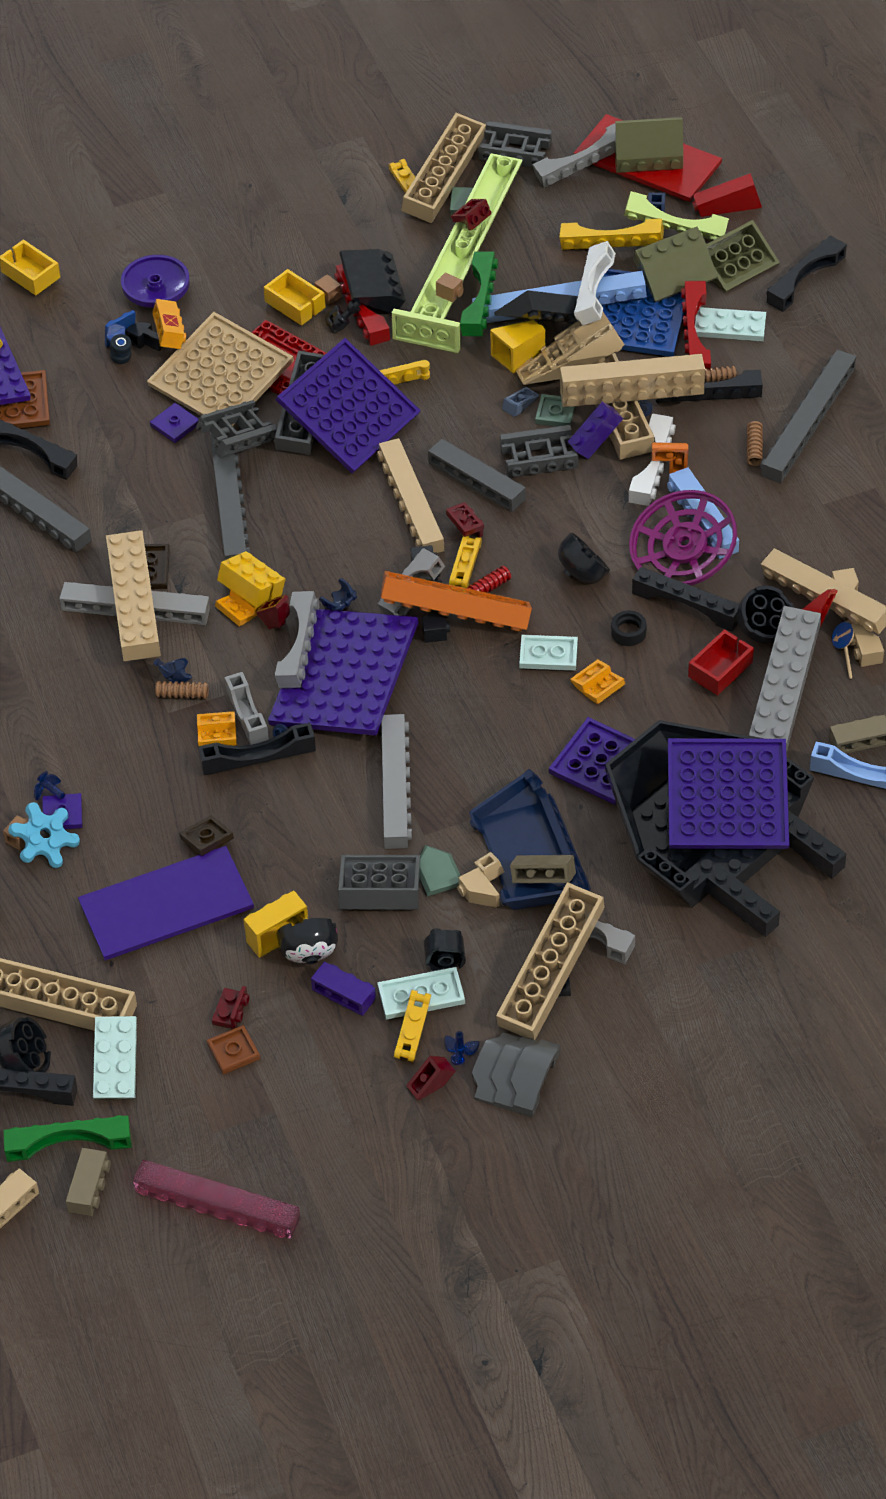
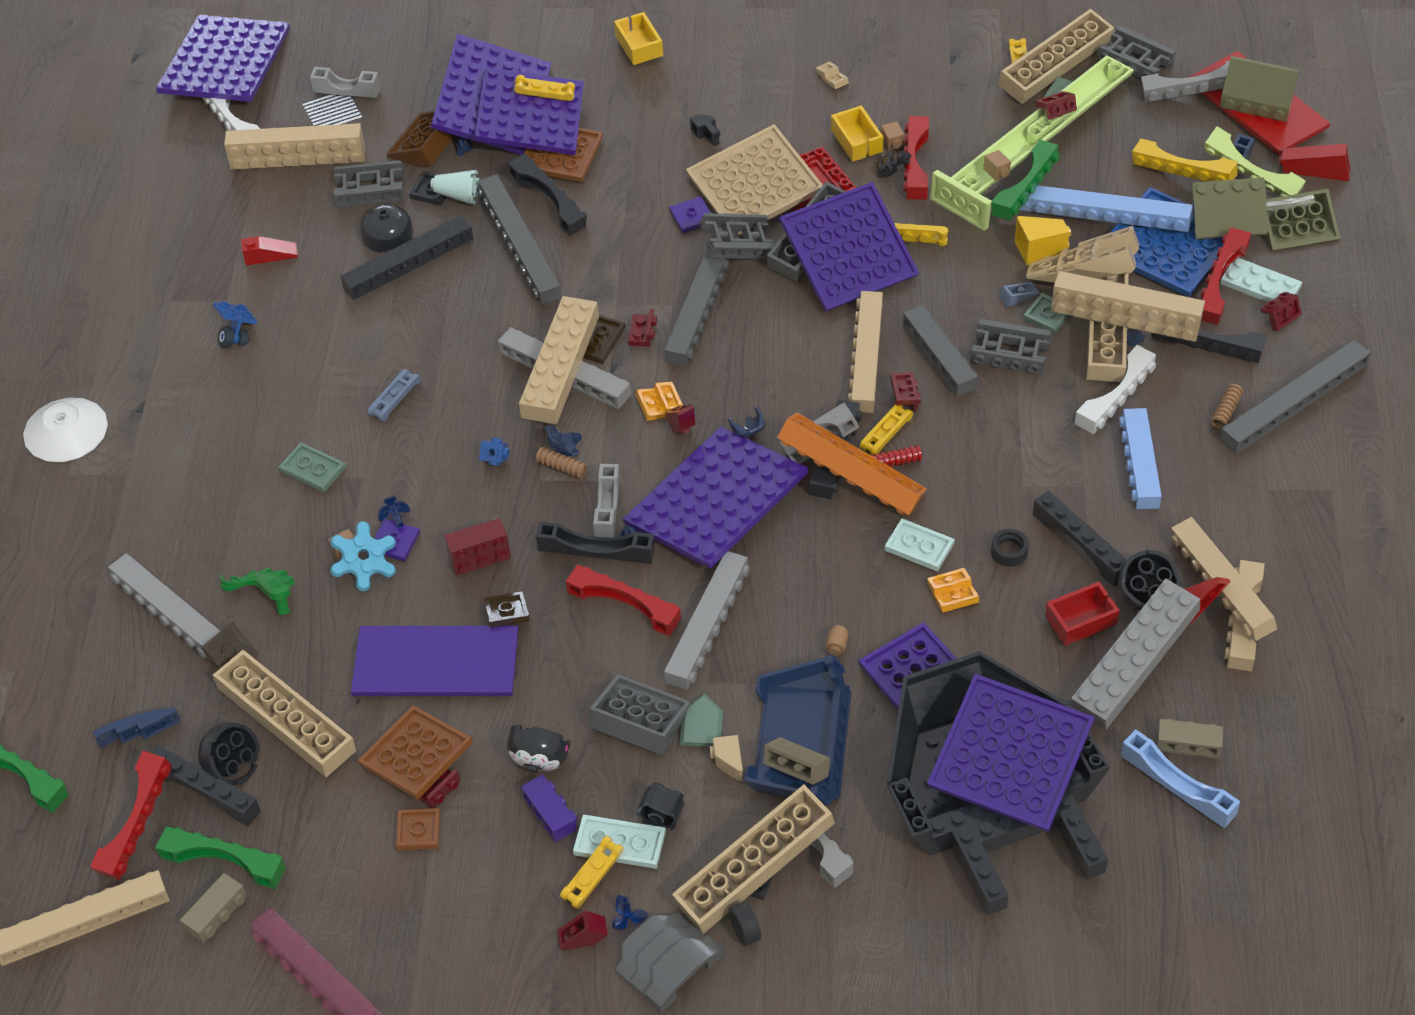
camera: 25 degrees right, 0 degrees up
(108, 705) = (494, 451): none -> blue brick
(115, 1057) = (302, 795): light aqua plate -> none
(116, 337) = (680, 120): plate -> none
(150, 789) = (478, 546): none -> dark red brick
(155, 278) = (741, 82): dark purple dish -> none
(168, 324) = (730, 123): light orange brick -> none
(188, 544) = (642, 329): none -> dark red bracket
(195, 985) = (415, 752): none -> dark orange plate
(217, 728) = (573, 511): light orange slope -> none
(235, 248) = (830, 74): none -> tan slope
(250, 579) = (675, 378): yellow piece -> none
(263, 924) = (518, 711): yellow piece -> none
(273, 786) = (587, 583): none -> red arch
(292, 668) = (666, 477): light grey arch -> none
(373, 278) = (935, 137): black slope -> none
(490, 866) = (749, 738): tan plate -> none
(520, 758) = (837, 640): none -> medium nougat brick
(541, 306) = (1077, 210): black slope -> none
(569, 1017) = (745, 923): none -> black tyre
(581, 560) = (996, 465): black cylinder -> none
(595, 430) = (1071, 343): dark purple brick -> none
(598, 261) = (1153, 182): white arch -> none
(674, 452) = (1138, 390): orange brick -> none
(681, 532) = (1107, 470): magenta dish -> none
(719, 374) = (1220, 327): medium nougat piece -> none
(762, 342) = (1282, 310): none -> dark red bracket
(827, 254) = (1390, 244): black arch -> none
(841, 638) = (1219, 632): blue piece -> none

